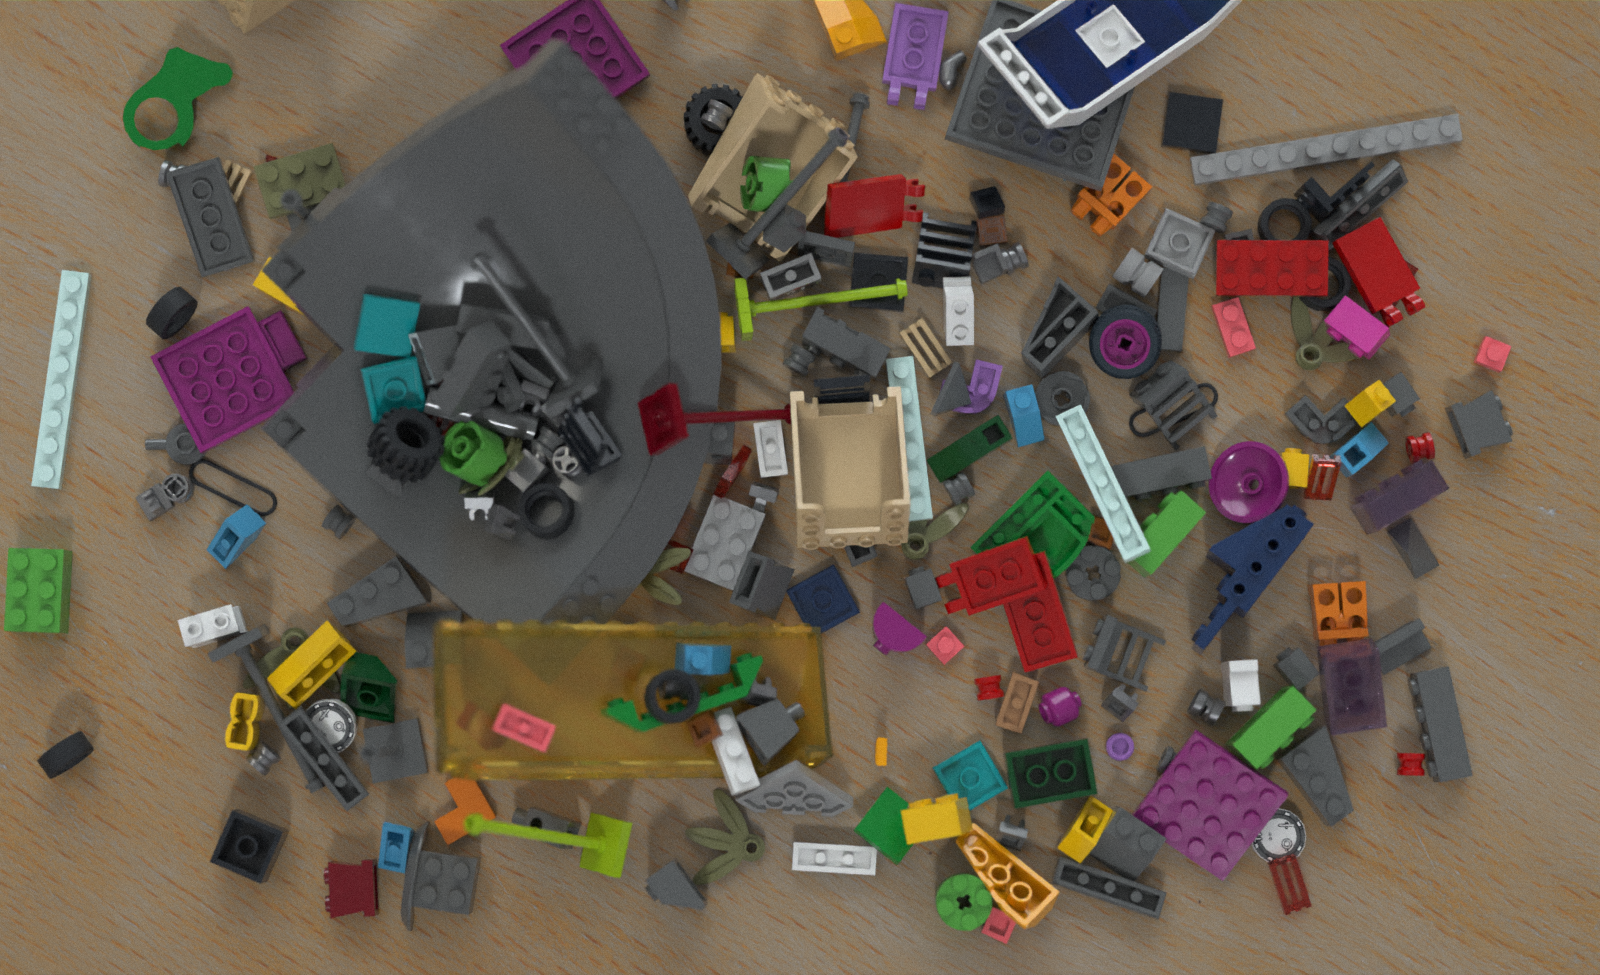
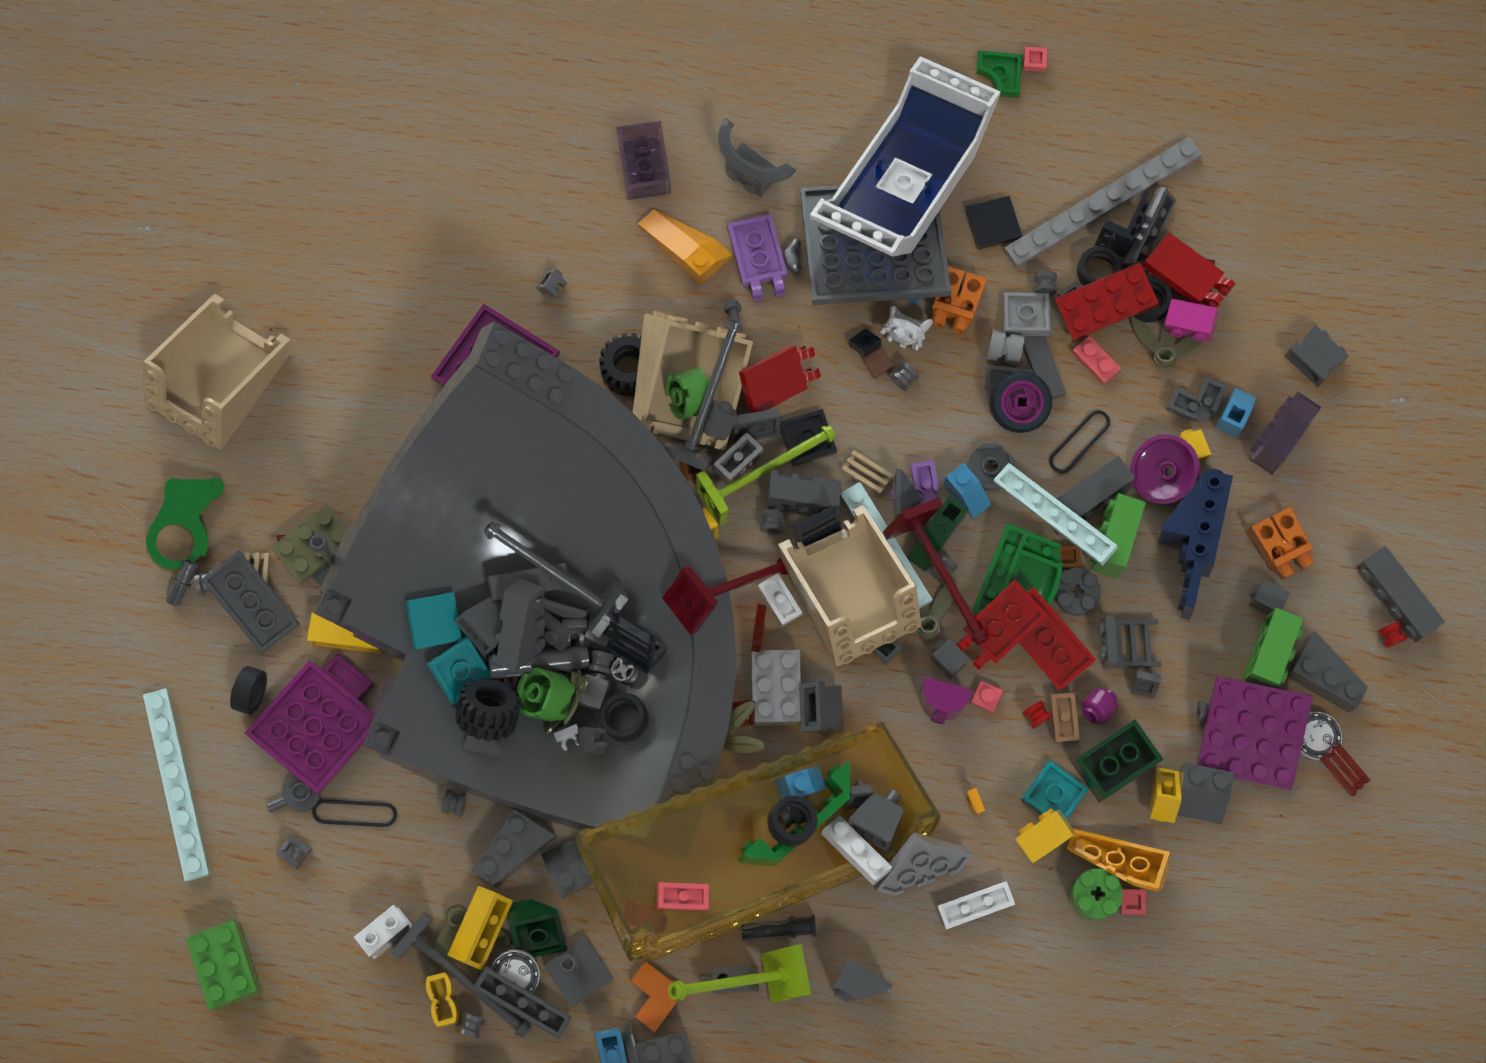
camera: 25 degrees left, 10 degrees down
(147, 165) = (181, 582): none -> dark grey axle
(182, 490) = (312, 834): flat silver wheel -> none
(236, 535) = (373, 850): dark azure slope -> none
(632, 798) = (791, 927): none -> black pin
(704, 728) = (827, 840): dark orange tile -> none
(717, 115) = (627, 358): flat silver wheel -> none
(720, 840) = (890, 928): olive plant -> none
(721, 444) = (741, 609): dark grey torso -> none
(763, 494) = (790, 638): flat silver tile -> none
(823, 600) = (874, 701): dark blue tile -> none
(884, 826) = (1005, 861): green tile -> none
(937, 262) = (853, 403): black plate -> none
(949, 425) = (913, 520): none -> dark red tile
(958, 311) = (881, 430): white hips -> none
(989, 263) = (888, 387): flat silver panel -> none
(1011, 835) = (1110, 824): dark grey tile -> none
(1038, 205) = (905, 329): none -> white hair
(1059, 328) = (964, 413): dark grey wedge -> none
(1108, 887) = (1205, 833): dark grey brick -> none
(1119, 746) = (1160, 718): medium lavender tile -> none
(1165, 389) = (1066, 428): dark grey plate -> none
(1206, 707) = (1213, 657): flat silver wheel -> none
(1240, 684) = (1233, 626): white hips -> none
(1324, 462) = (1210, 431): clear red tile -> none
(1351, 686) = (1319, 591): clear purple brick -> none
(1370, 403) = (1229, 371): yellow brick -> none
(1402, 393) = (1245, 359): dark grey brick -> none
(1402, 645) = (1338, 548): dark grey panel -> none
(1412, 548) = (1312, 470): dark grey slope -> none
(1420, 447) = (1281, 390): red wheel -> none
(1492, 354) = (1300, 300): coral plate -> none

